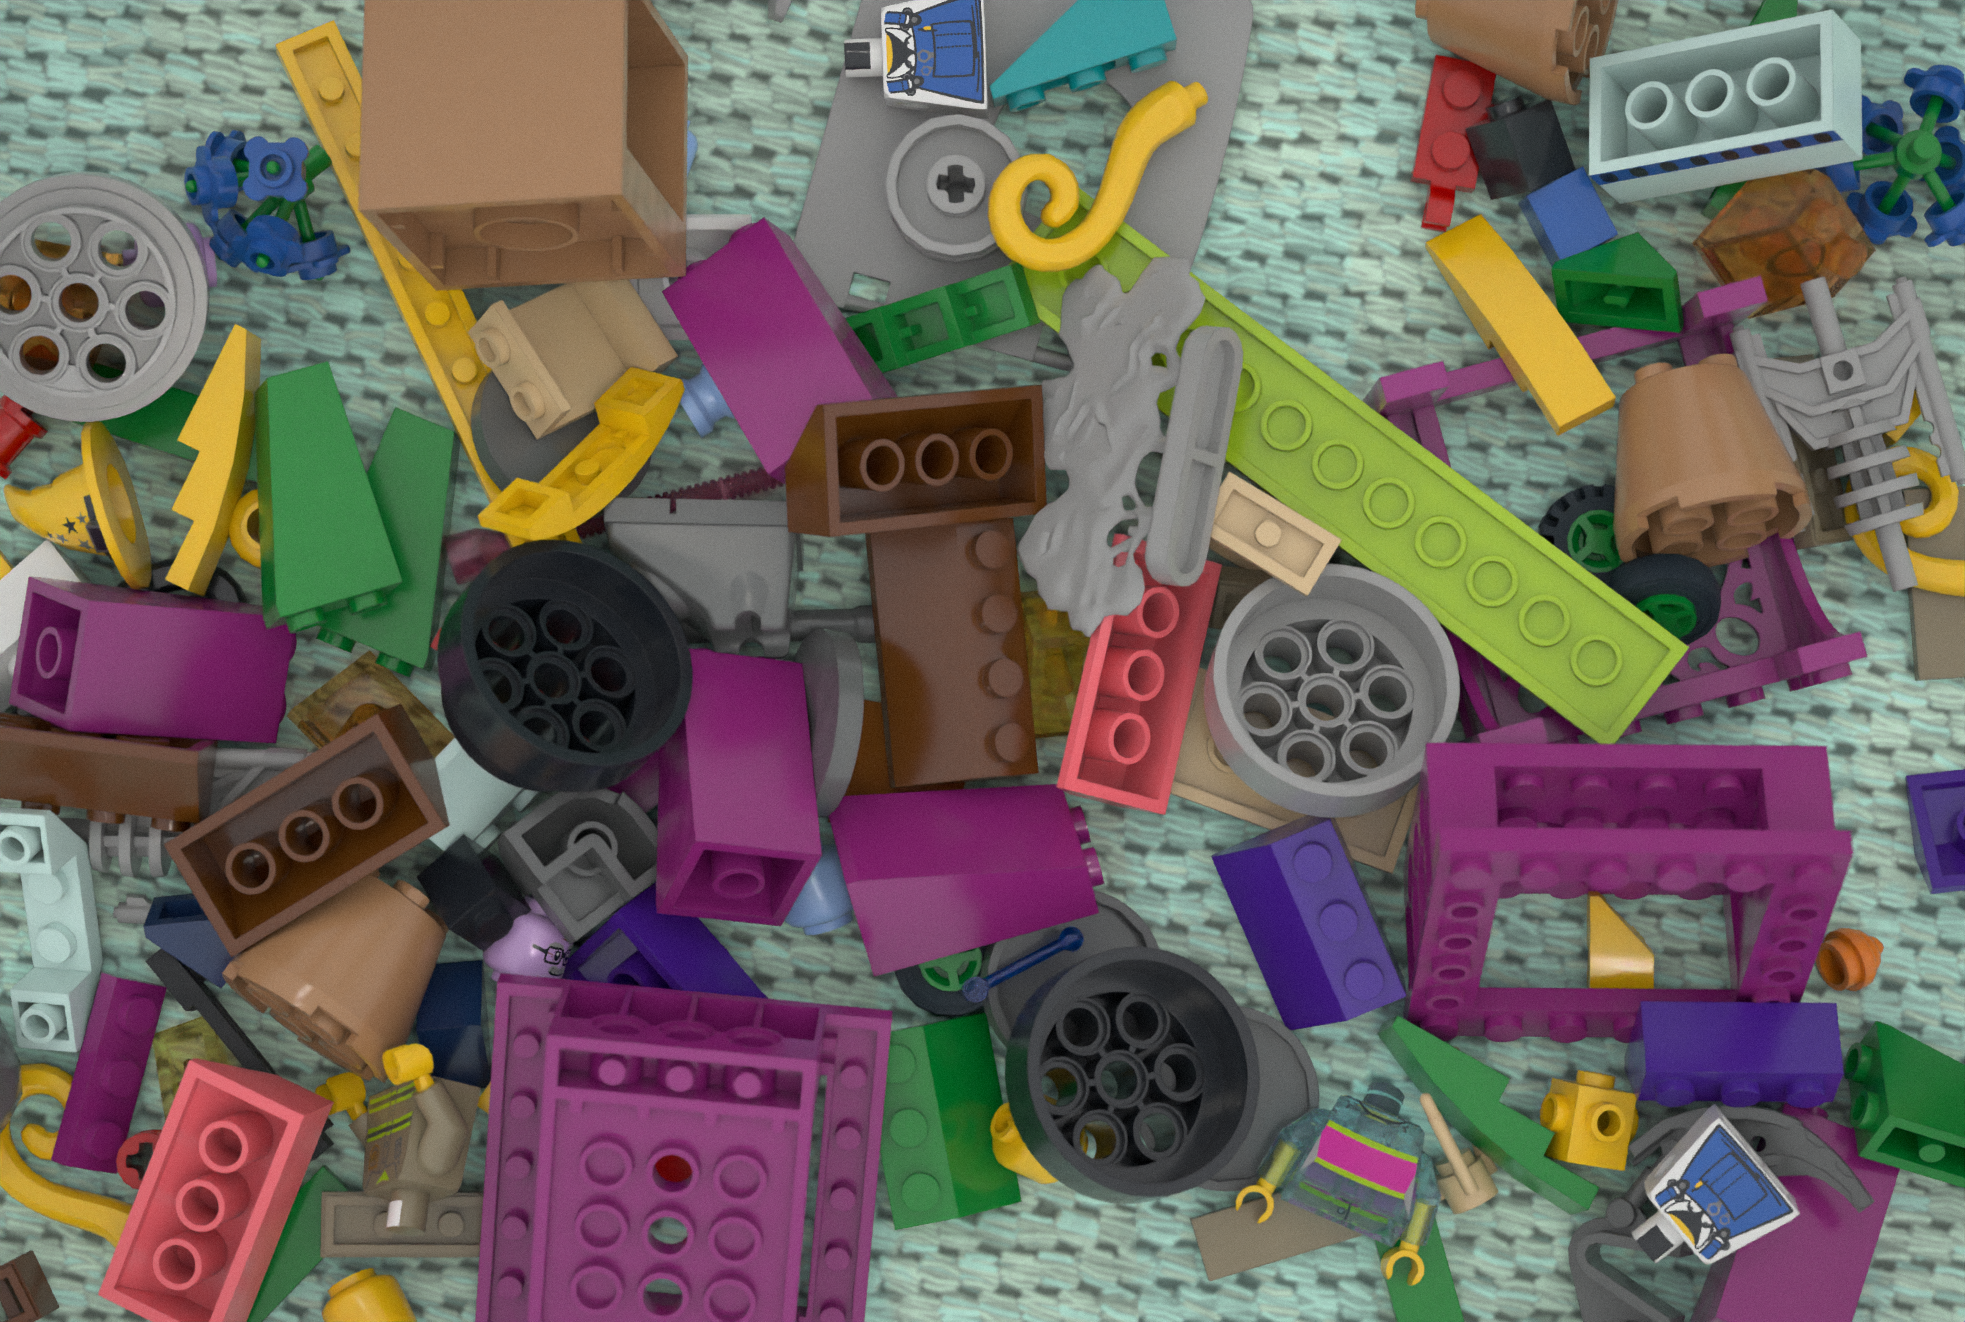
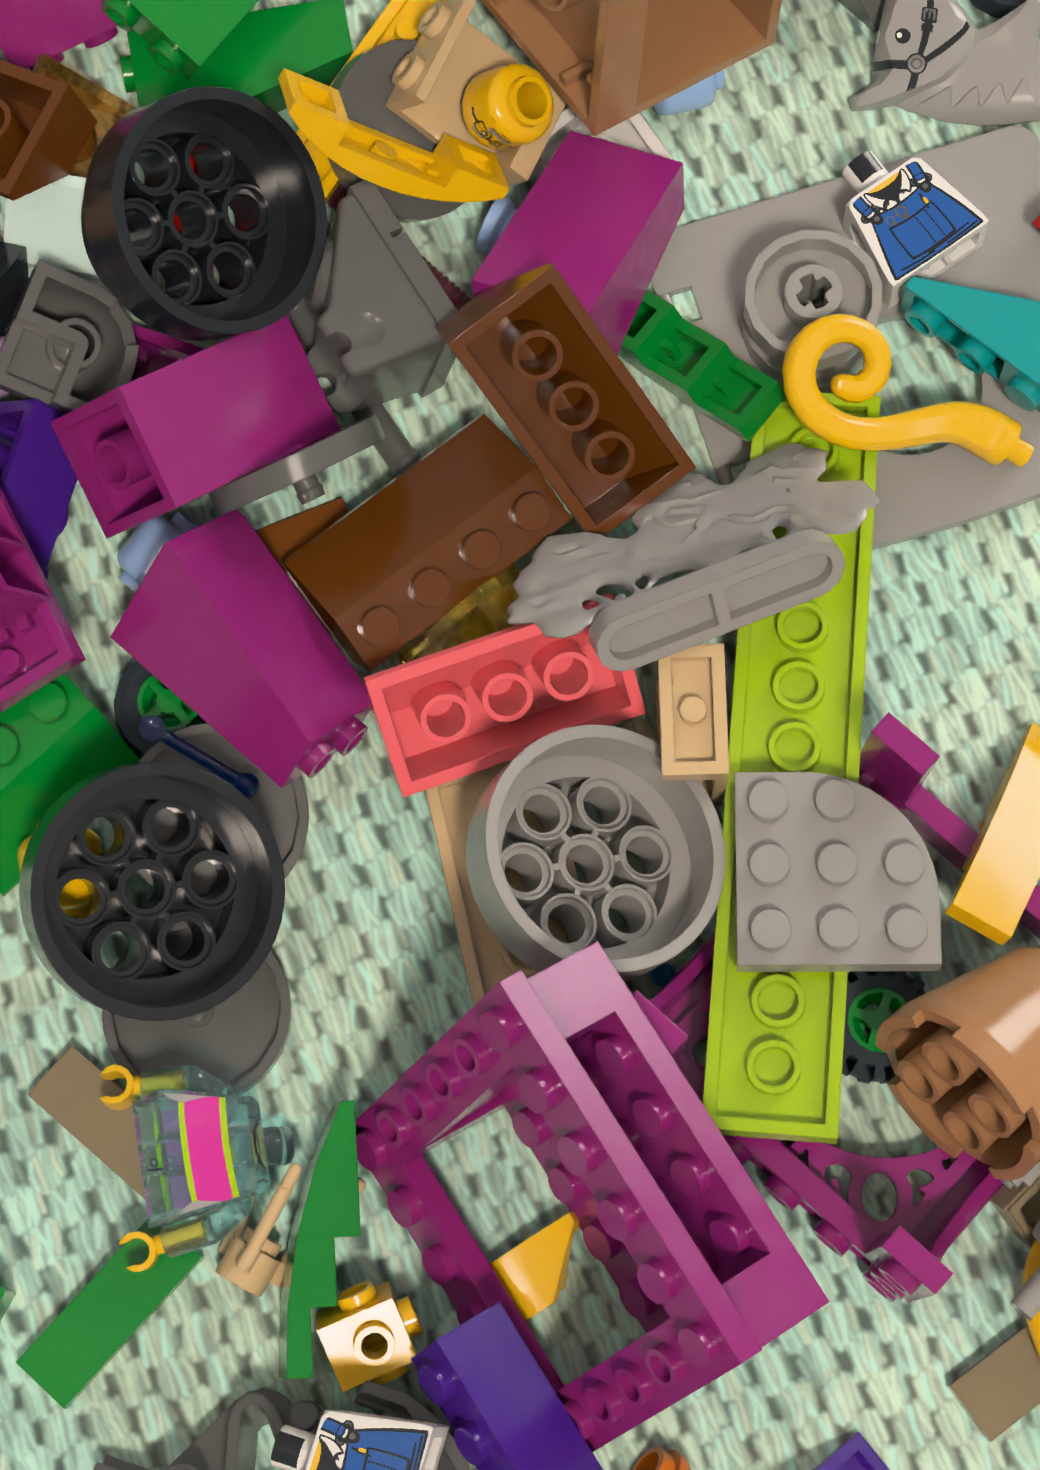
camera: 60 degrees right, 10 degrees down
(605, 332) = (508, 106): none -> yellow head
(1310, 923) = (392, 982): dark purple slope -> none
(1472, 511) = (830, 879): none -> light grey plate
(1672, 591) = (876, 1105): black wheel -> none

